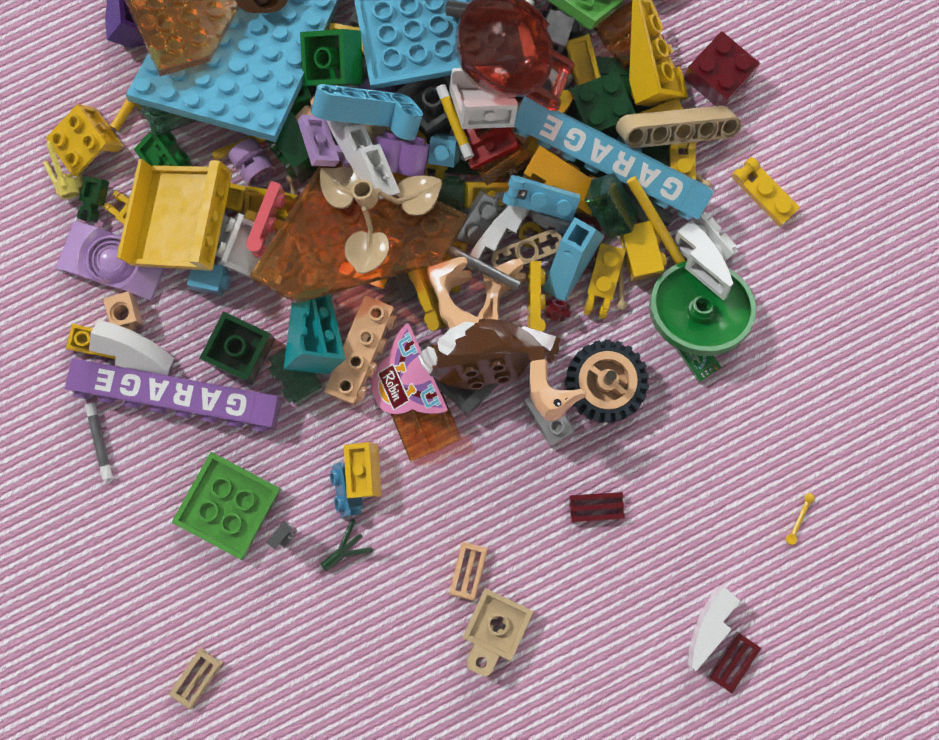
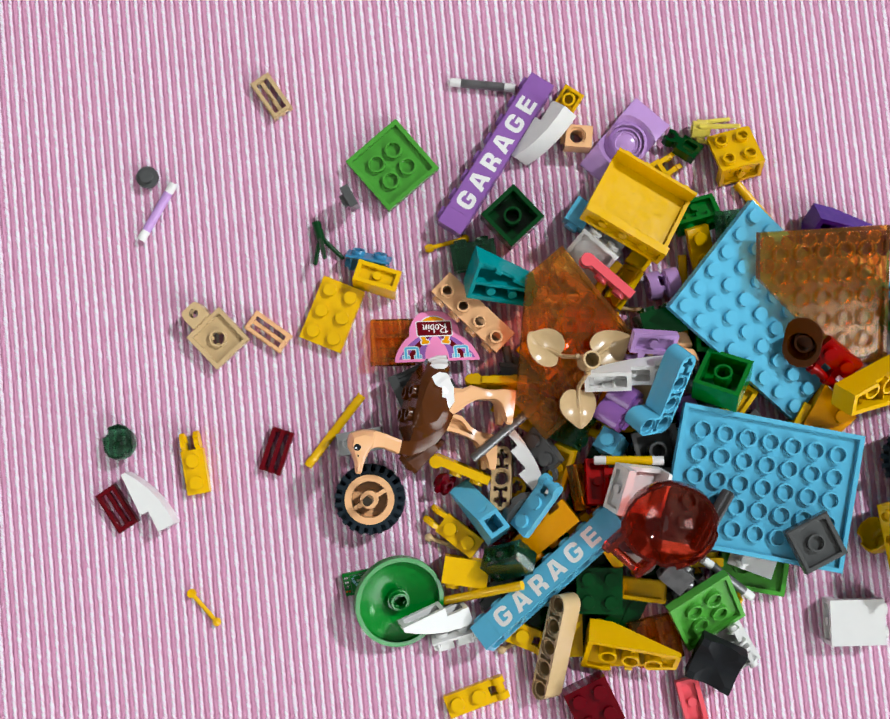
camera: 110 degrees right, 5 degrees up
(198, 138) = (698, 242): none -> yellow plate
(305, 427) = (429, 247): none -> yellow hinge
(420, 506) = (332, 314): none -> yellow plate
(548, 452) = (336, 428): none -> yellow bar
(651, 592) = (194, 465): none -> yellow hinge
(660, 689) = (119, 442): none -> clear green hair

